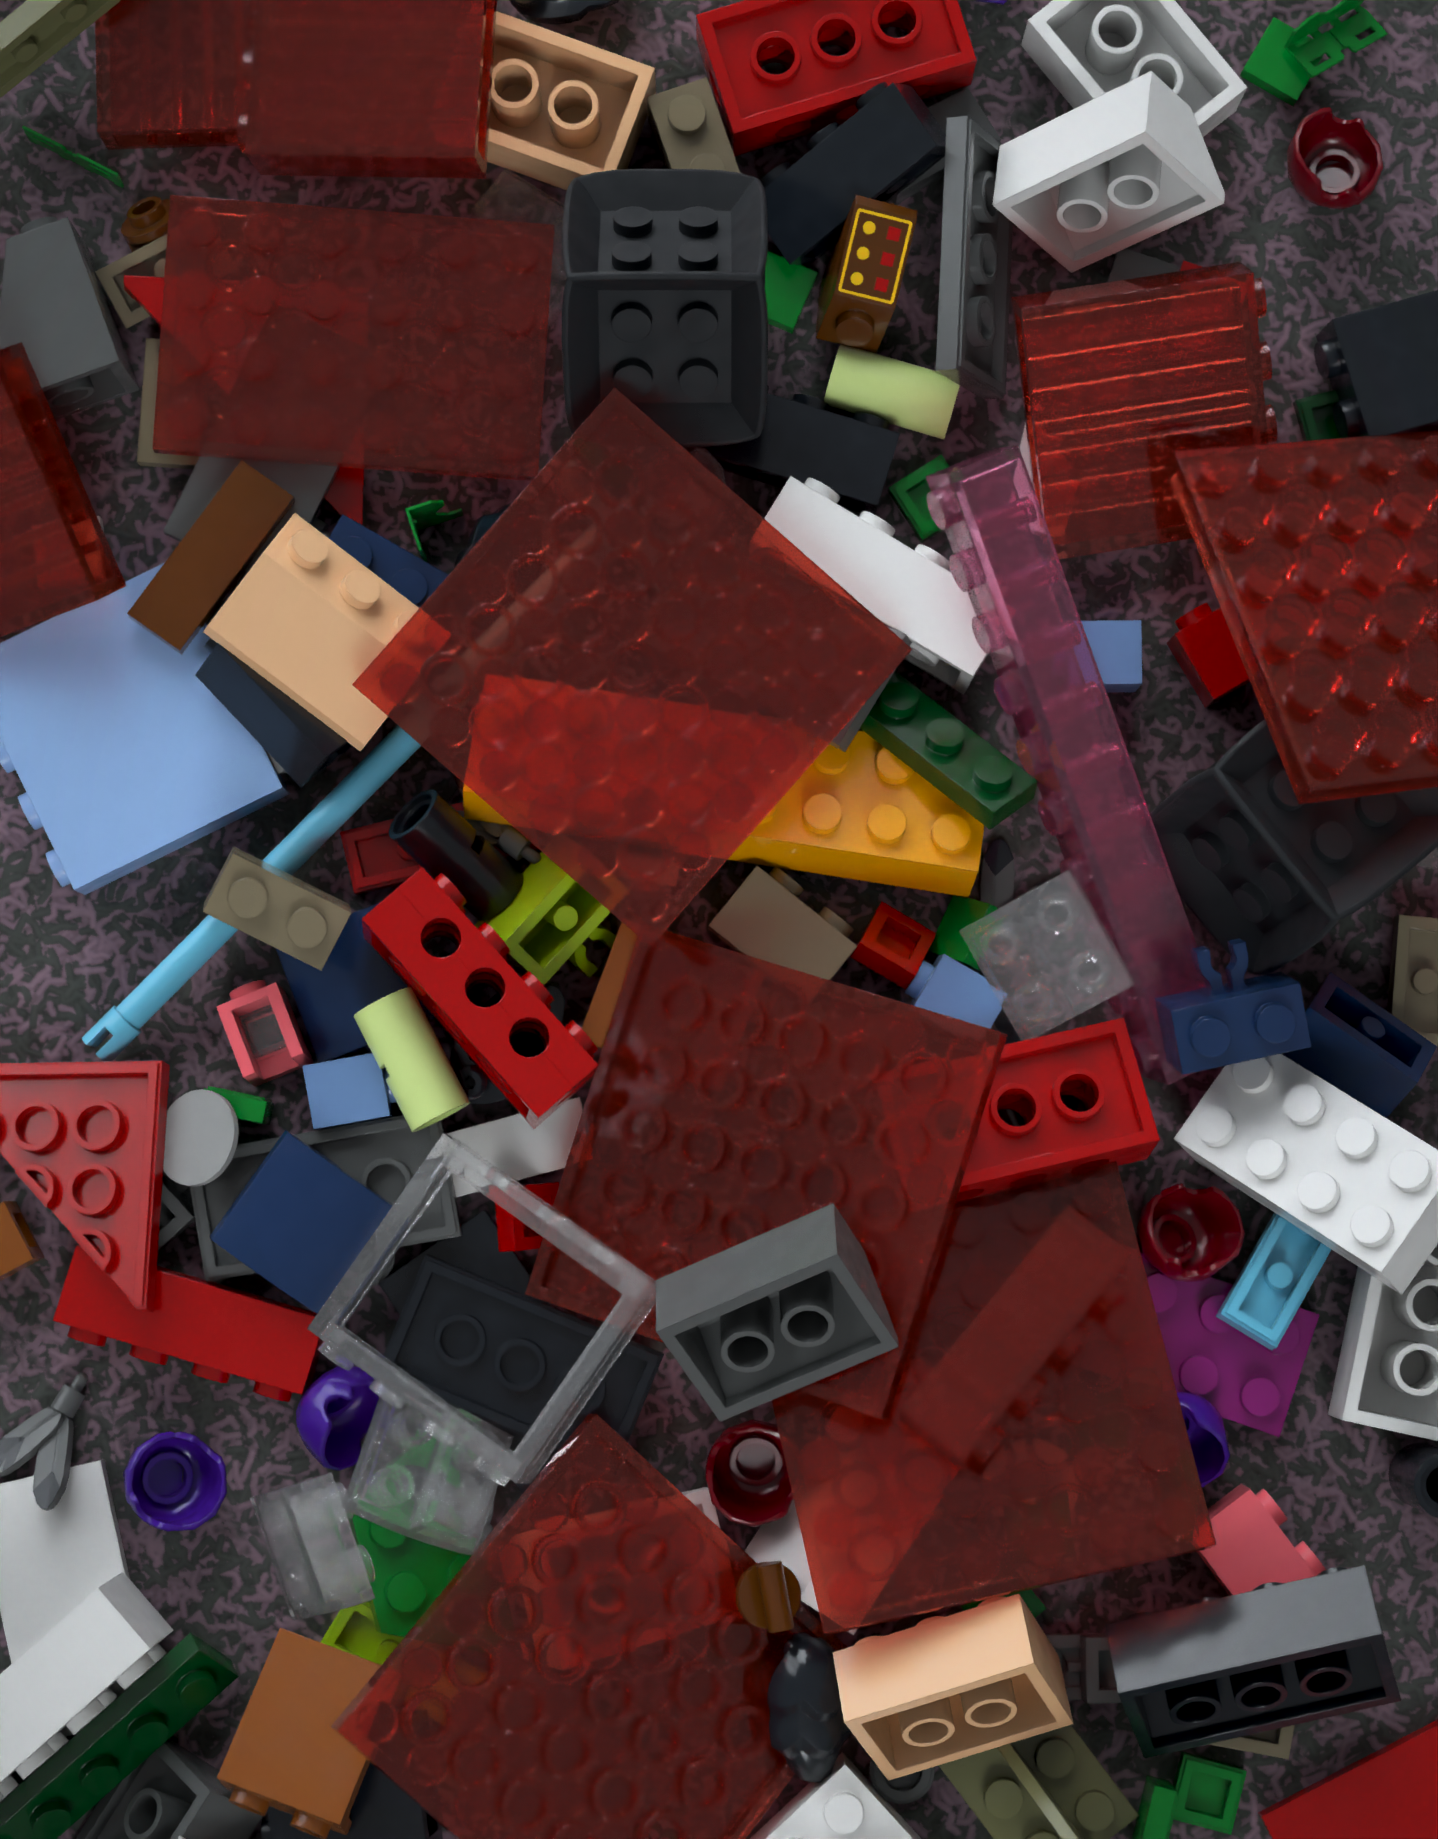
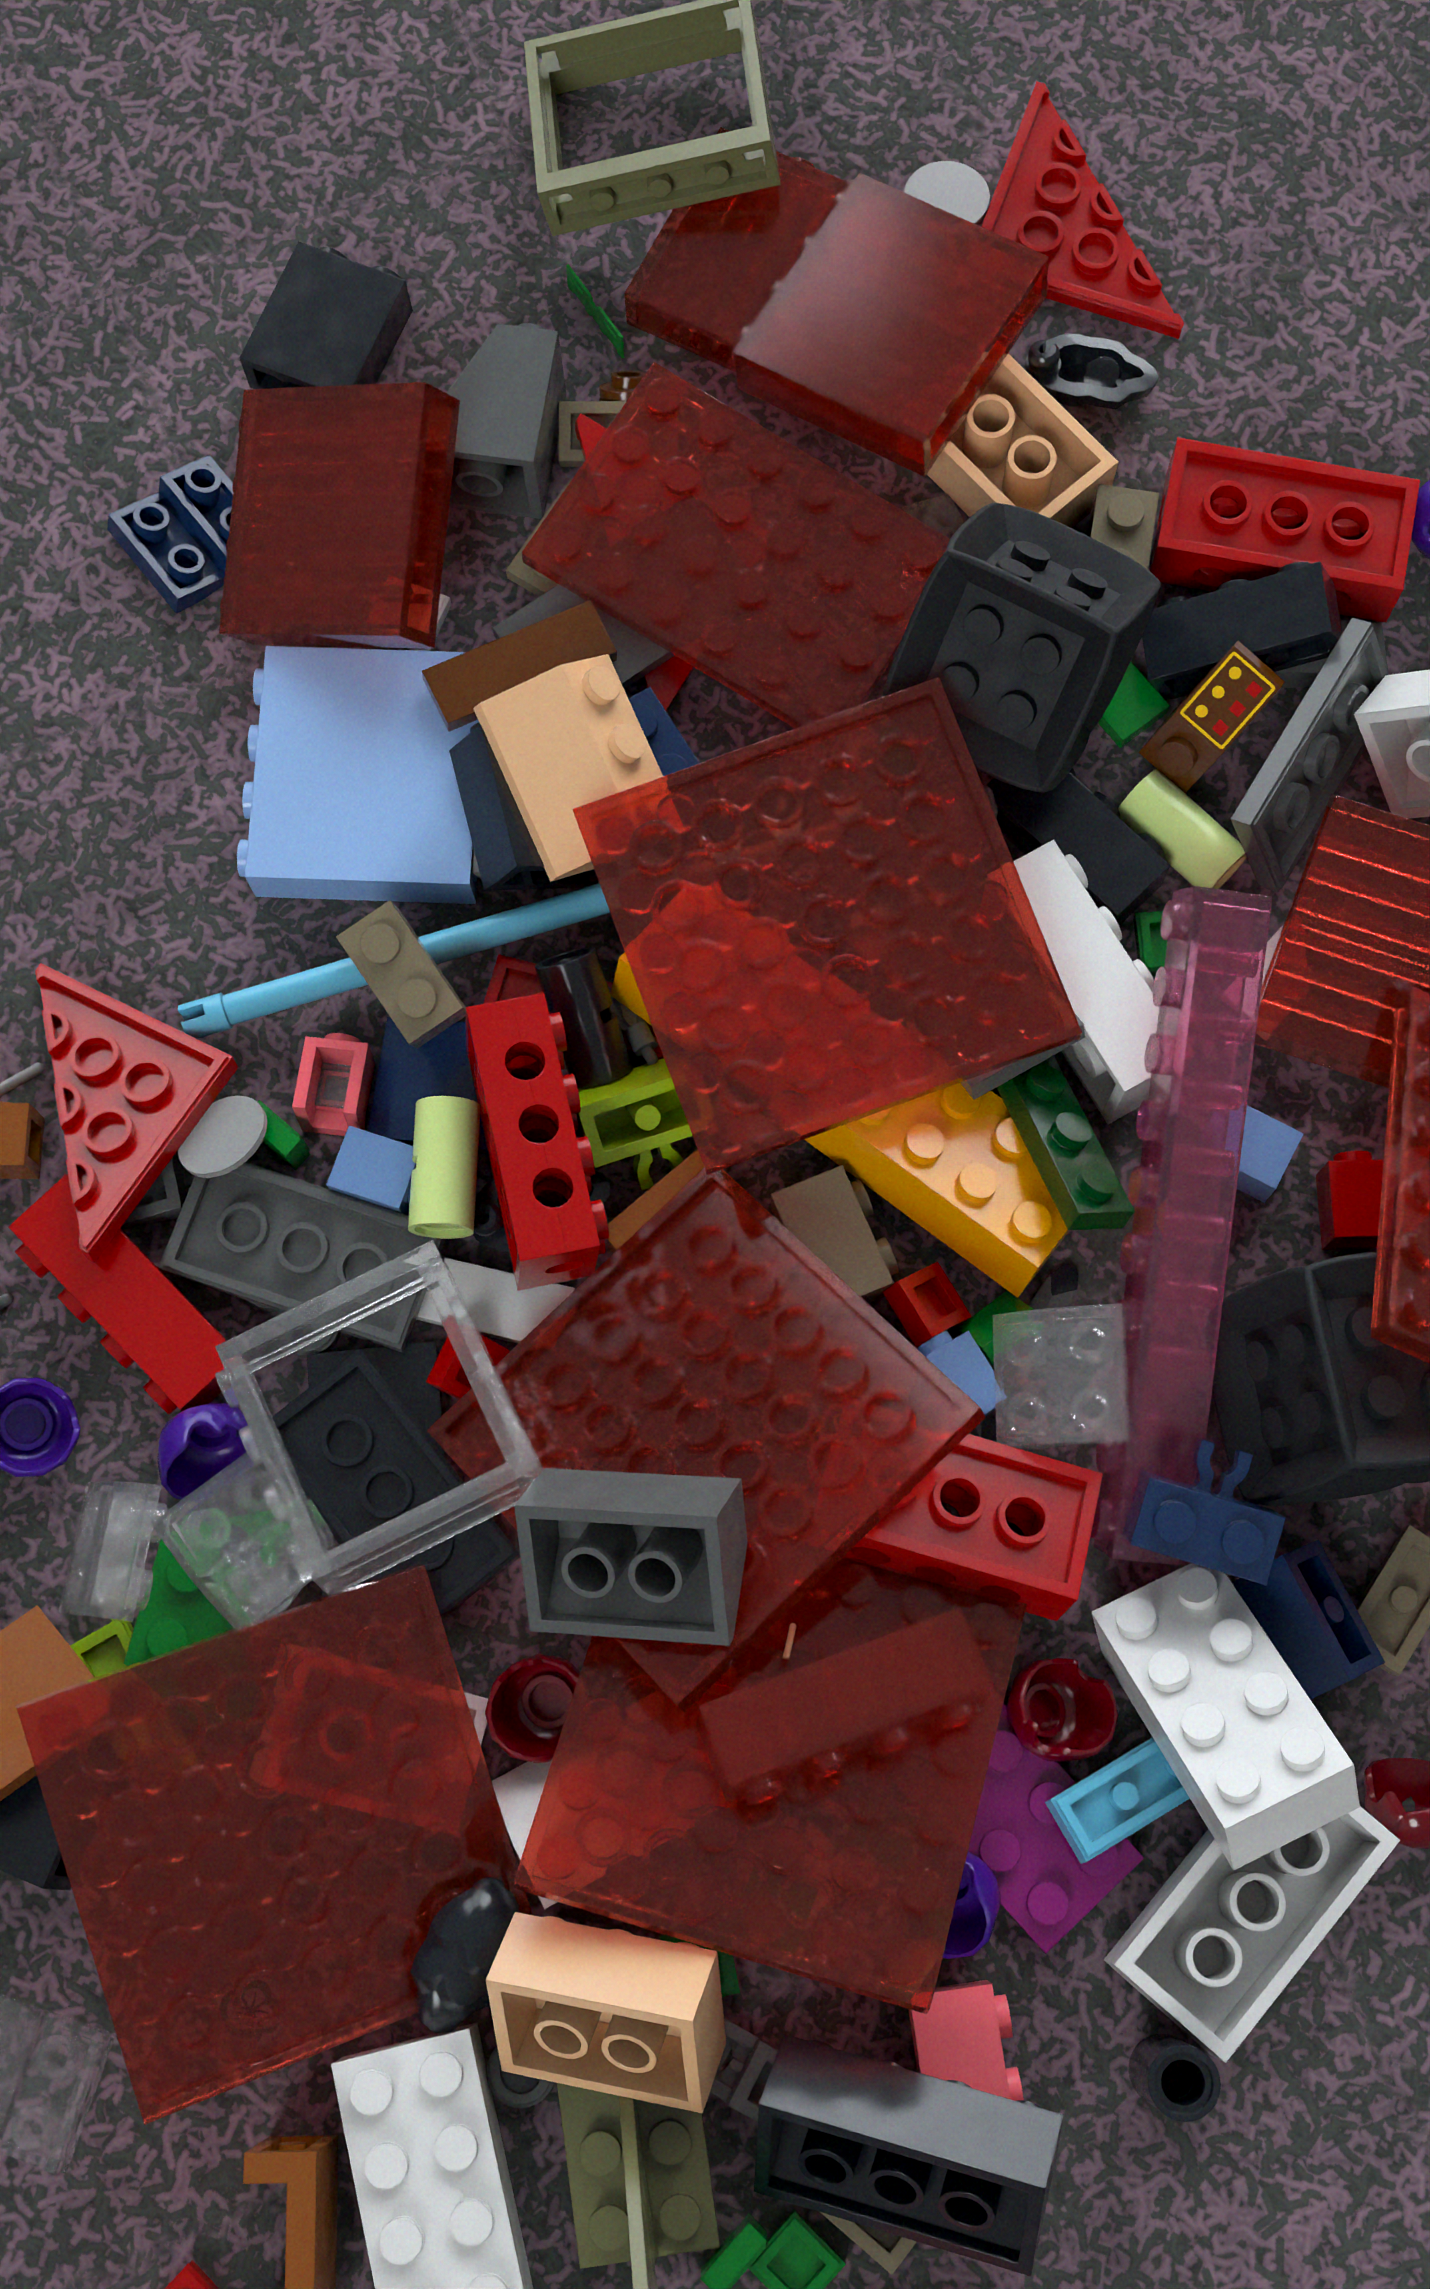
camera: 35 degrees right, 10 degrees down
(300, 1221) = (265, 1253): dark blue slope -> none
(427, 516) = (719, 734): green piece -> none
(768, 1596) = (486, 1825): reddish brown plate -> none
(938, 1306) = (789, 1642): none -> piece

